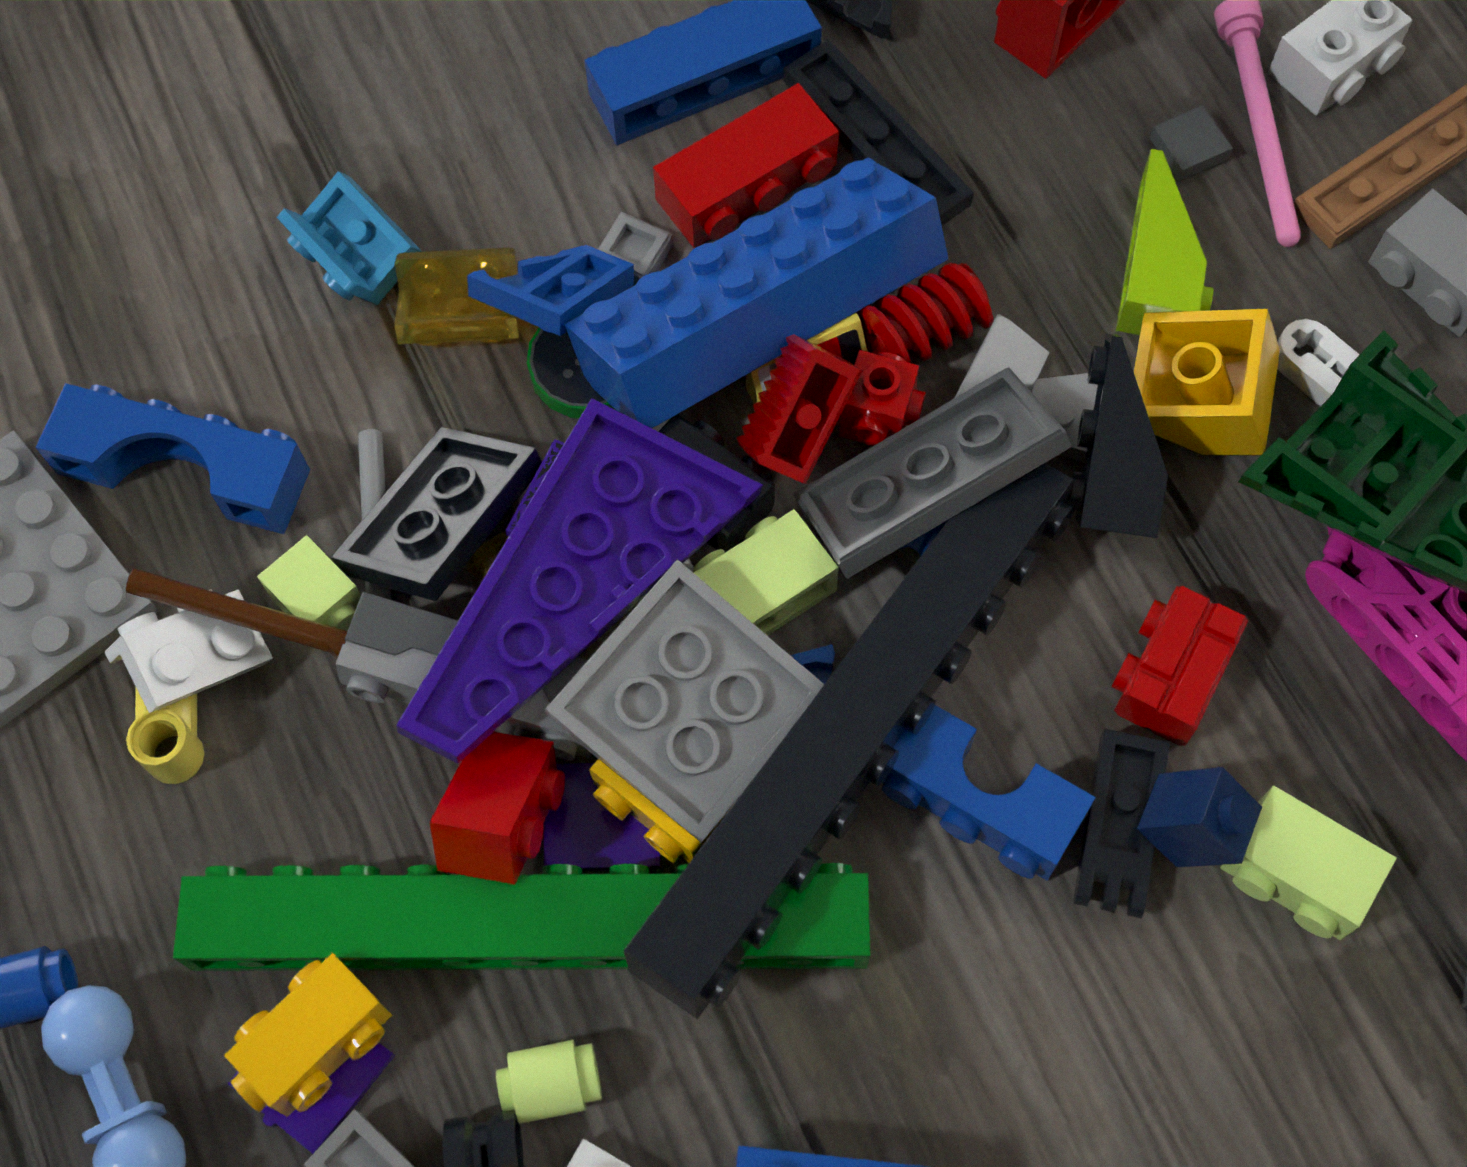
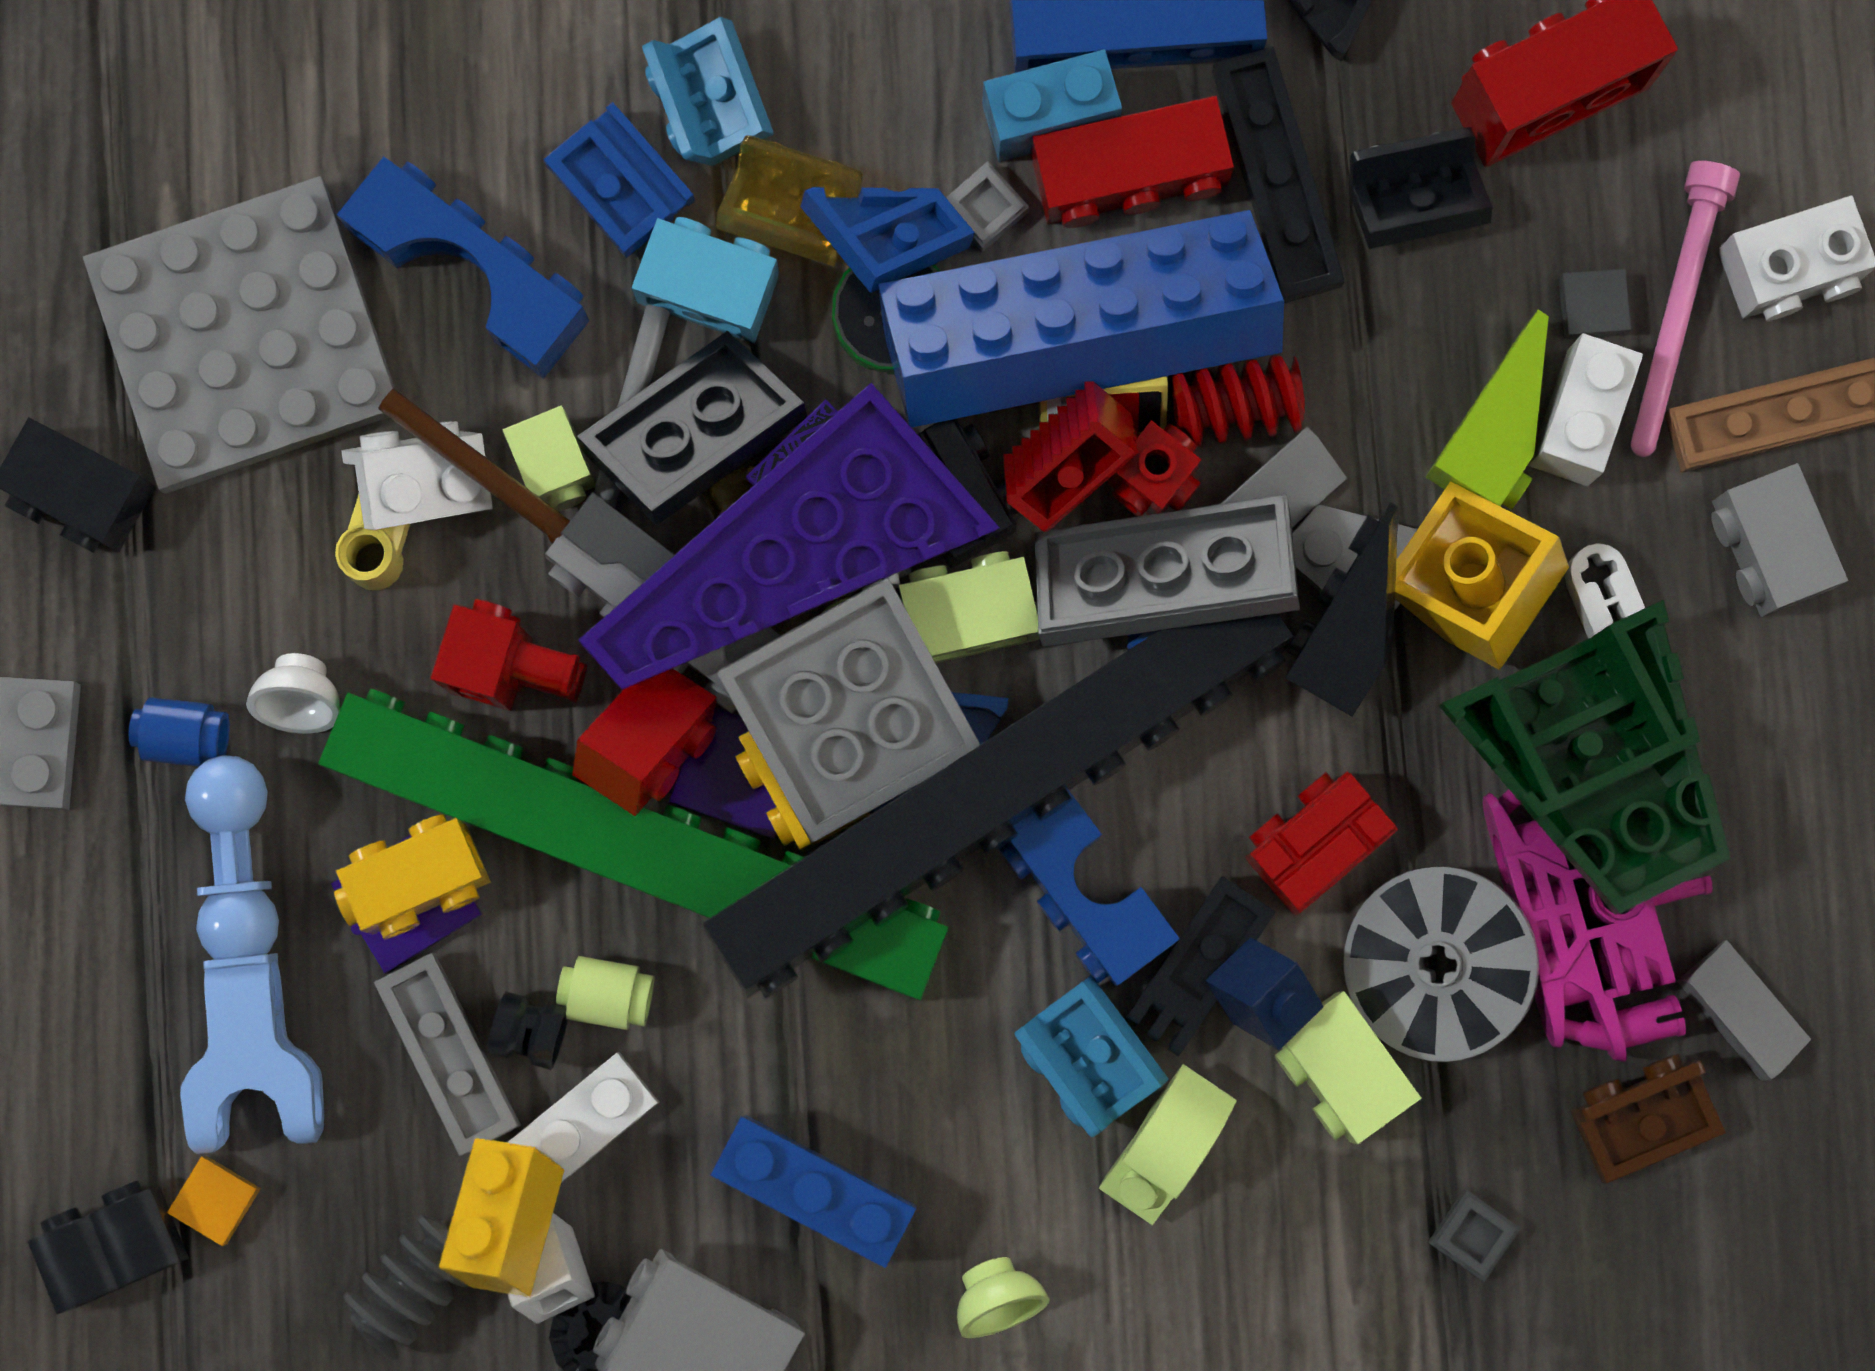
camera: 20 degrees right, 15 degrees up
(130, 907) = (295, 696): none -> white piece
(295, 338) = (618, 179): none -> blue plate
(317, 790) = (493, 657): none -> red brick
(404, 388) = (707, 278): none -> medium azure brick
(648, 136) = (1048, 100): none -> dark azure brick
(999, 101) = (1418, 188): none -> black bracket
(1059, 951) = (1090, 1057): none -> dark azure bracket
(1178, 1008) = (1169, 1145): none -> yellowish green brick
(1231, 216) = (1585, 409): none -> white brick
(1369, 681) = (1477, 927): none -> light grey piece

